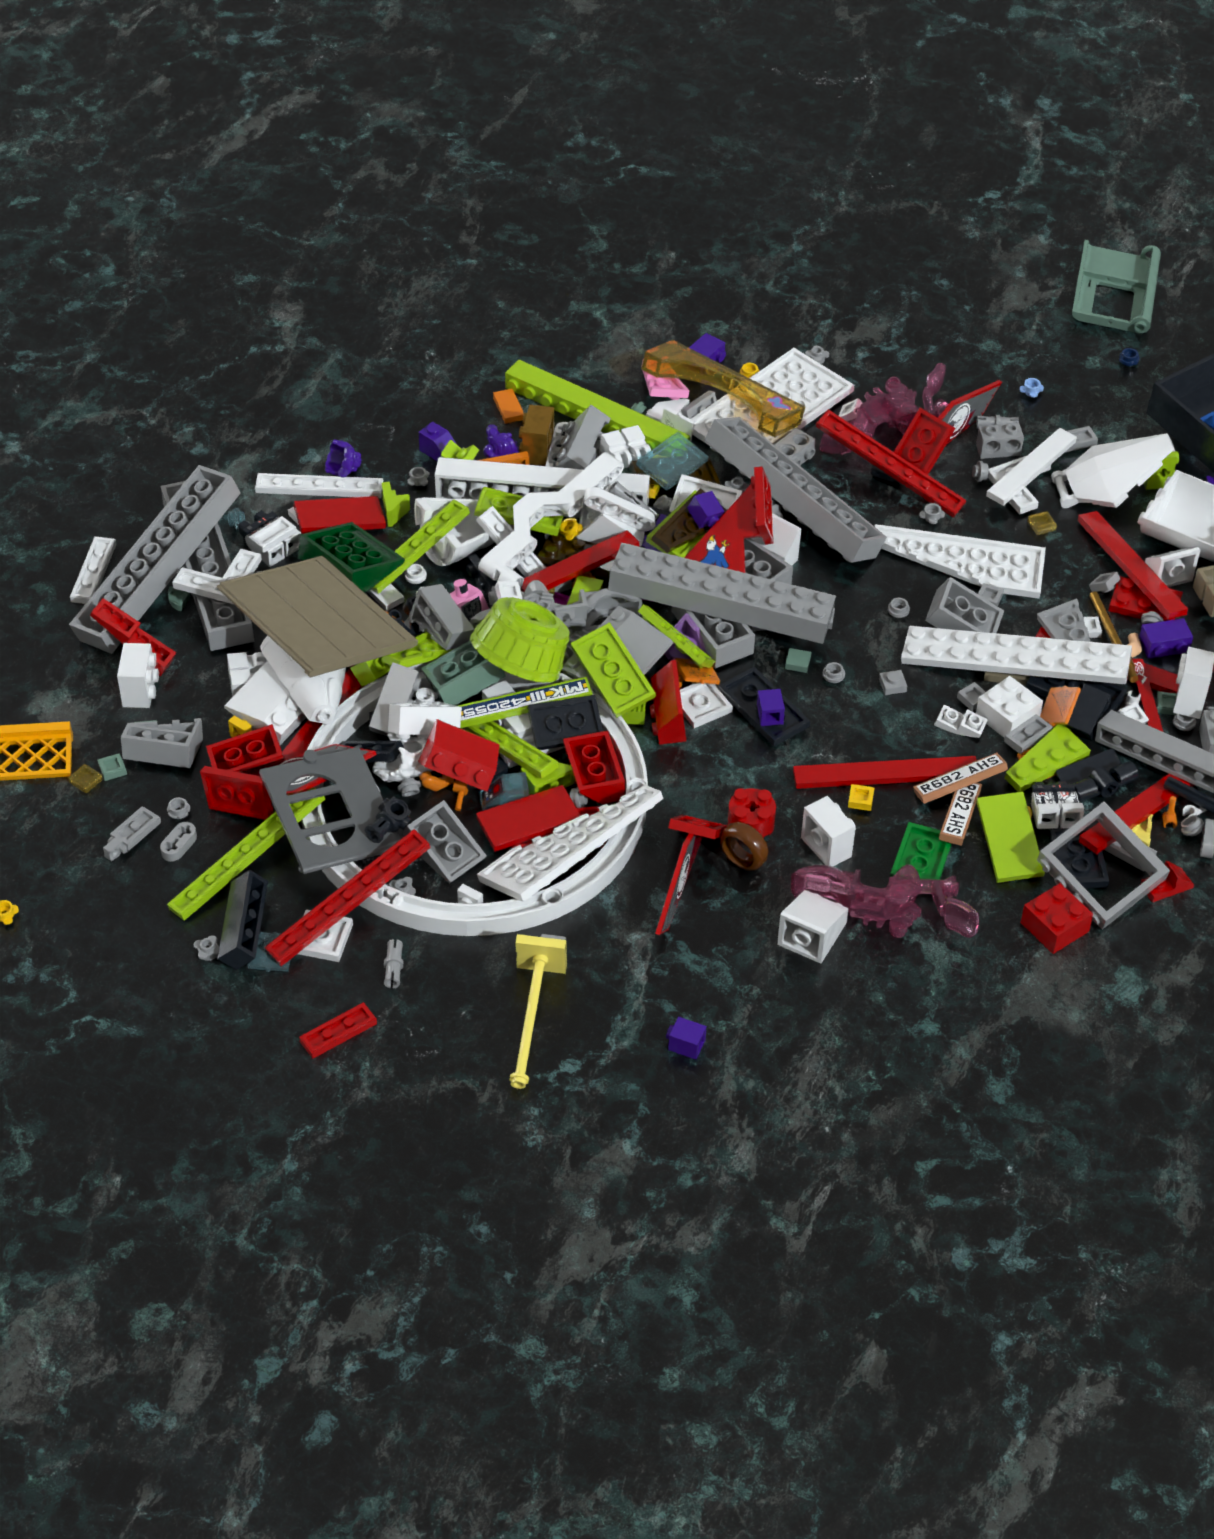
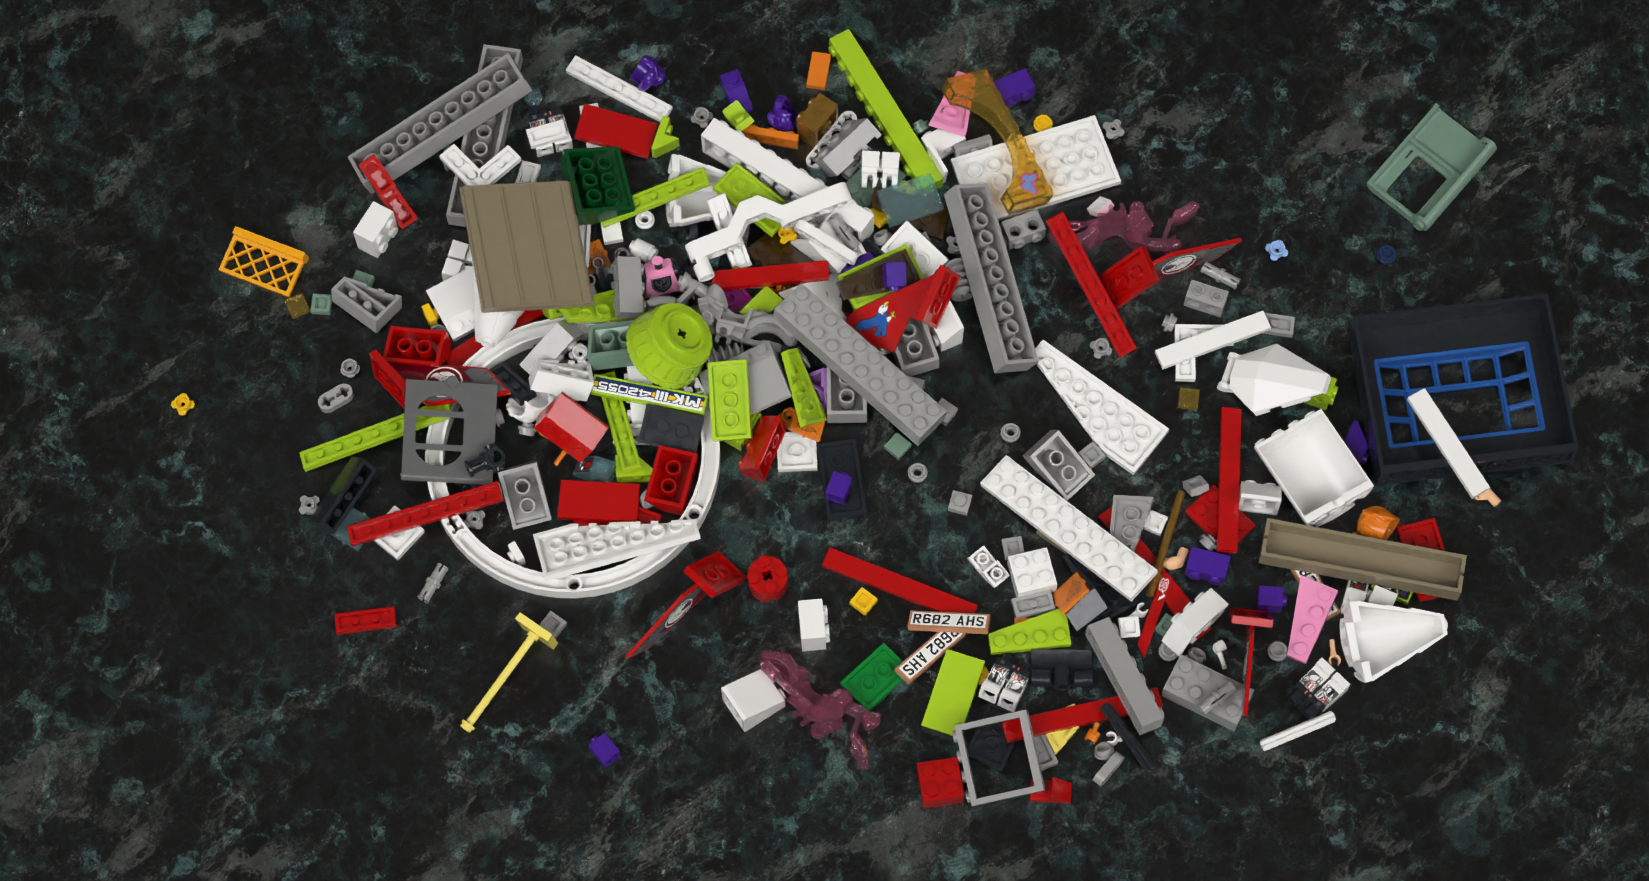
camera: 30 degrees right, 20 degrees up
(93, 569) = (399, 99): white tile -> none
(130, 832) = (304, 374): light grey hinge -> none
(508, 589) = (689, 288): white plate -> none
(736, 853) = (740, 608): reddish brown wheel -> none

